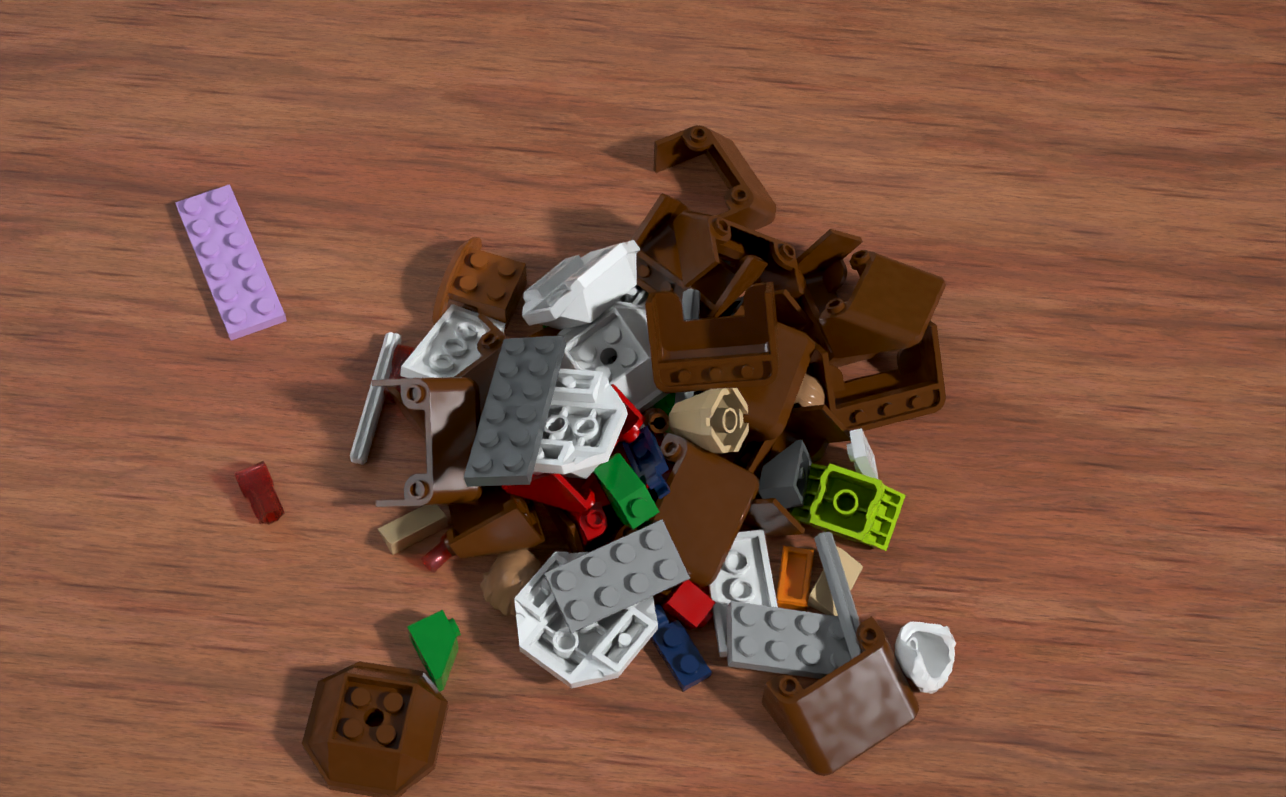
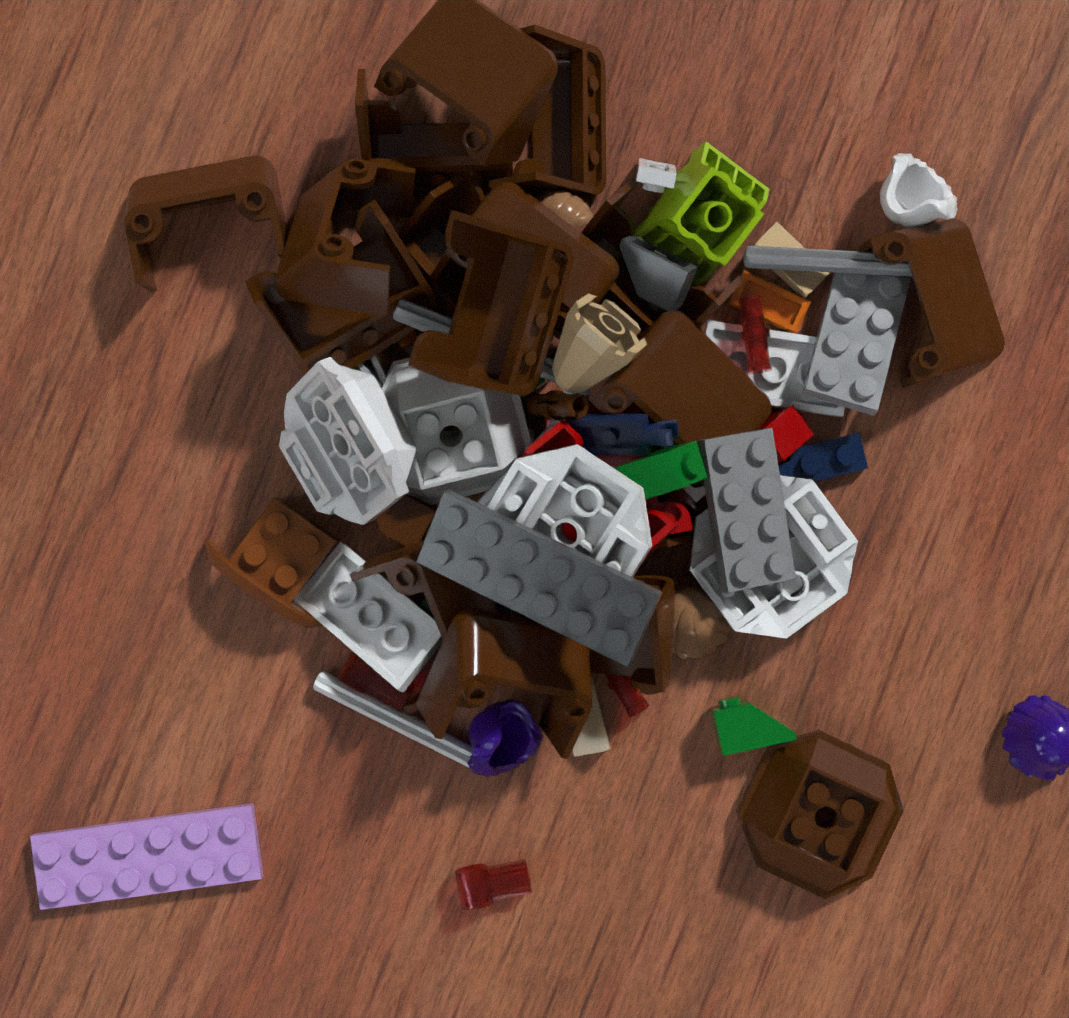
camera: 75 degrees left, 30 degrees up
(378, 464) = (502, 738): none -> dark purple hair
(763, 560) = (755, 334): none -> clear red pin

